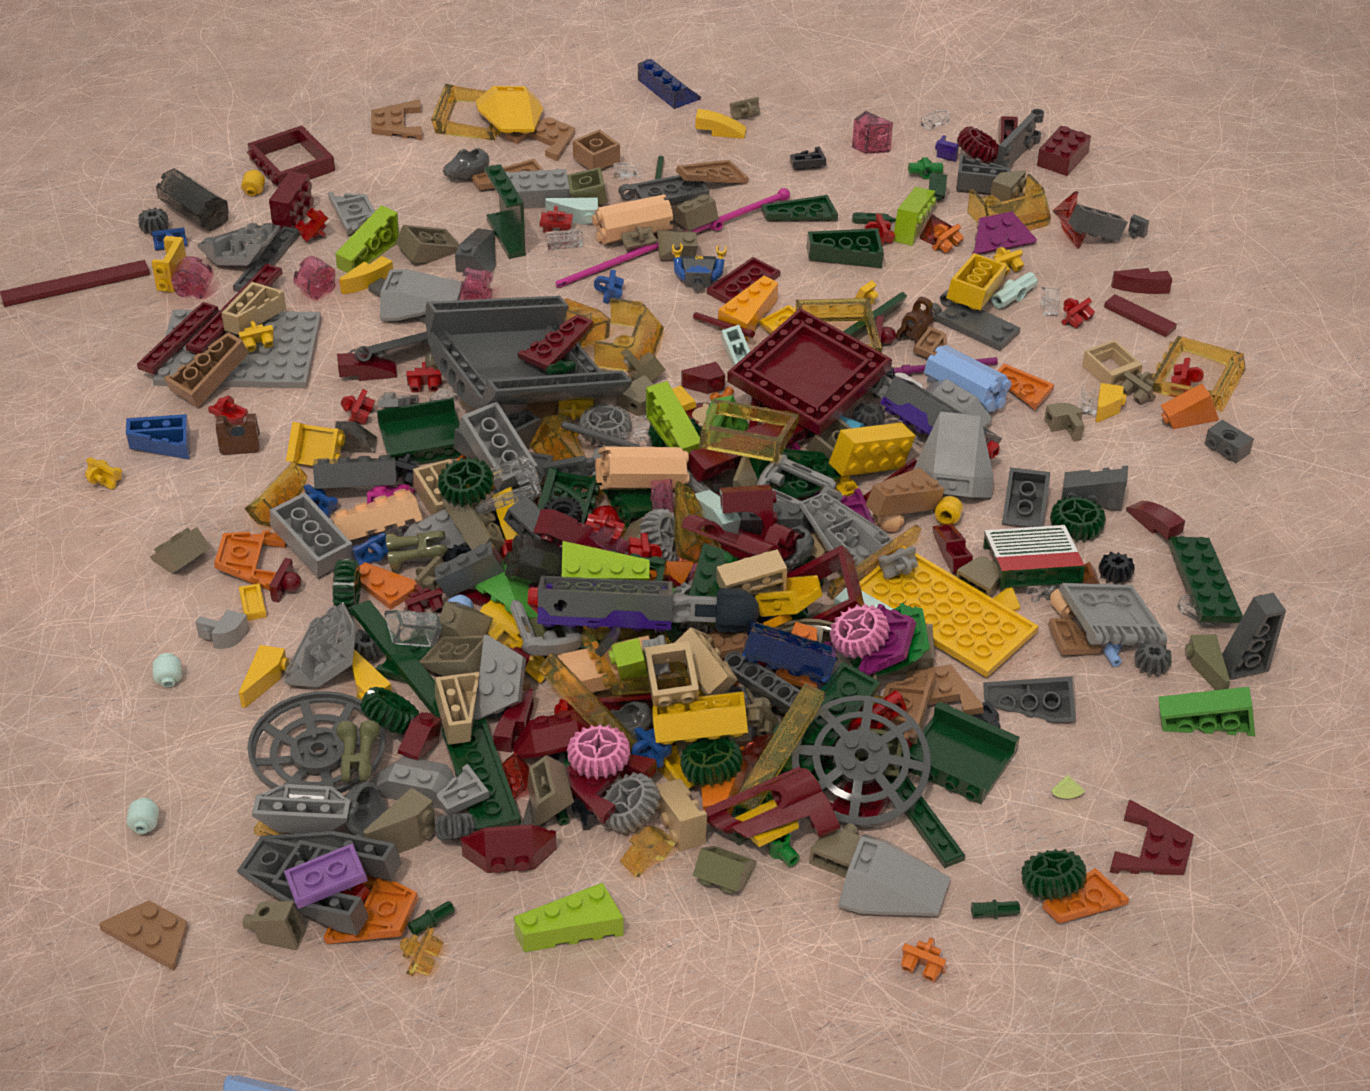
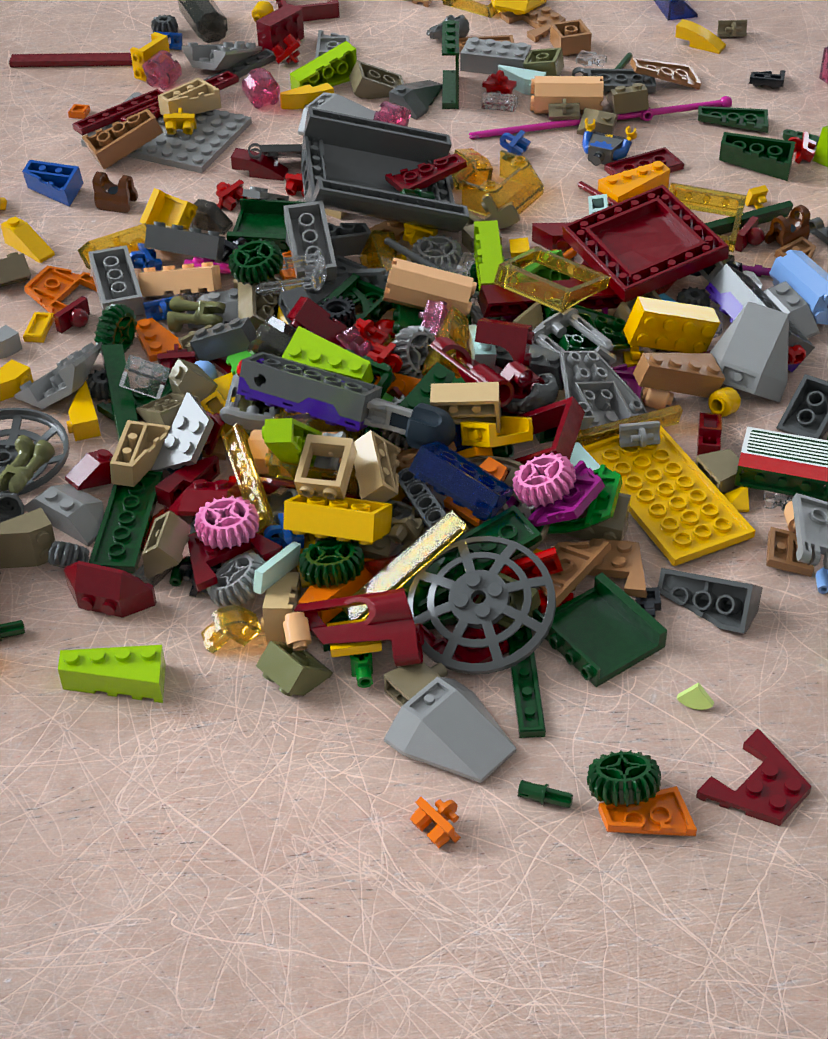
camera: 25 degrees right, 0 degrees up
(124, 345) = (79, 111): none -> orange tile
(173, 509) = (24, 239): none -> yellow slope
(226, 407) = (119, 169): red hips -> none
(388, 709) = (77, 437): dark green gear -> none
(462, 792) = (93, 527): light grey wing -> none
(665, 780) = (276, 567): none -> light aqua tile
(718, 833) = (297, 631): none -> light nougat brick

